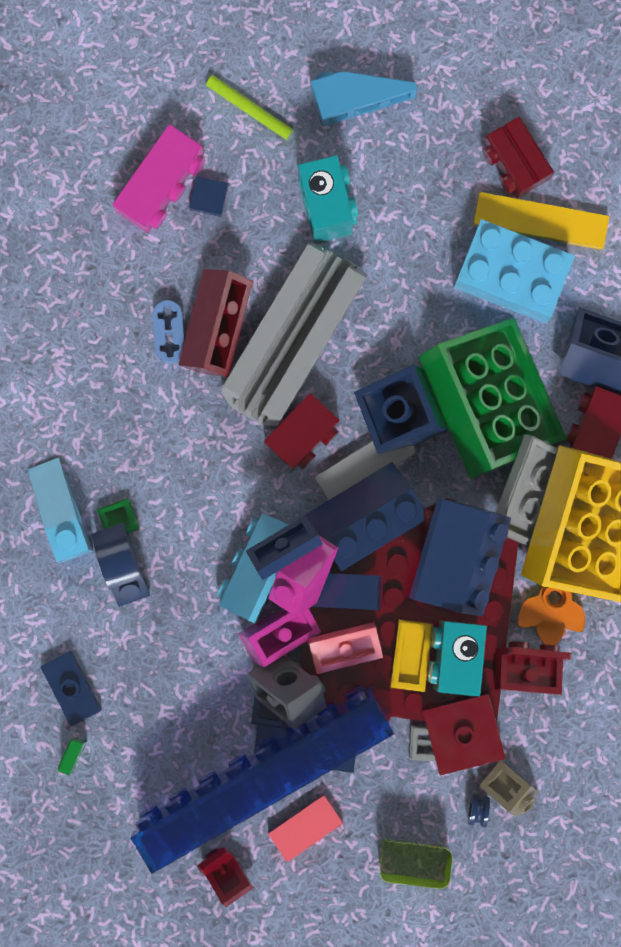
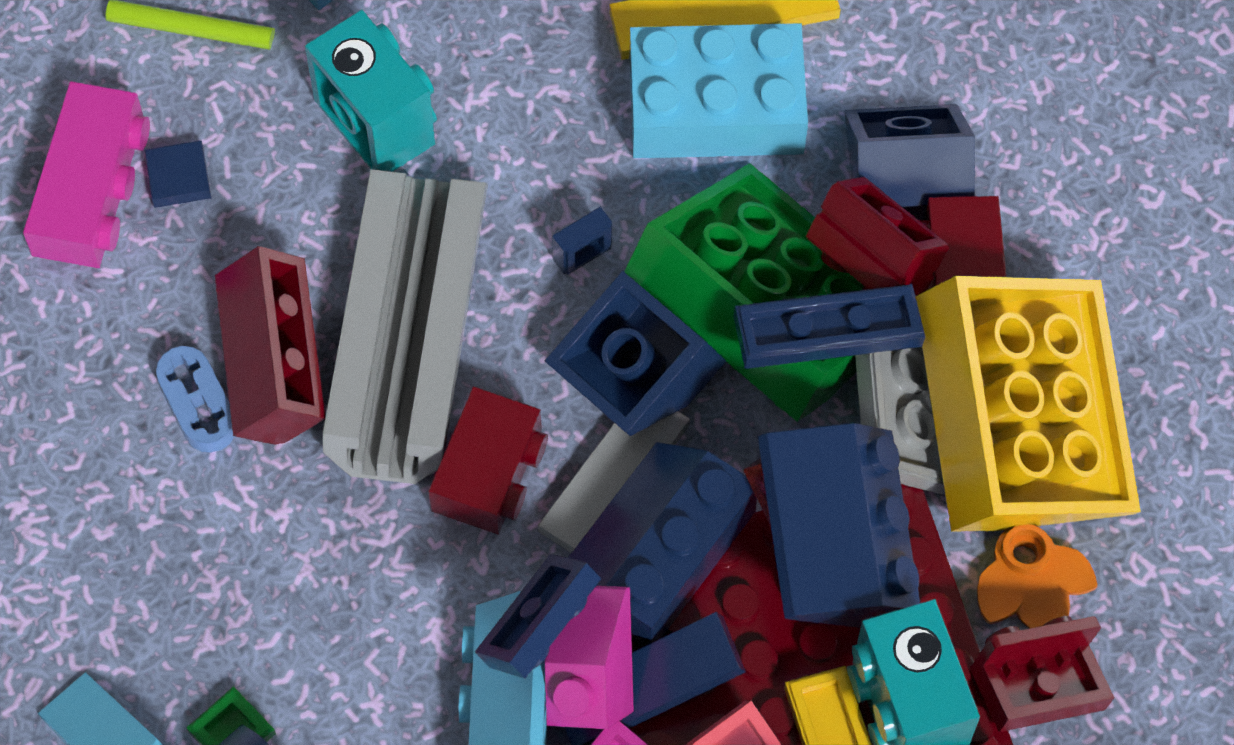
camera: 25 degrees left, 20 degrees down
(403, 329) = (582, 241): none -> dark blue tile
(505, 444) = (828, 326): none -> dark blue tile
(555, 402) = (875, 238): none -> dark red brick

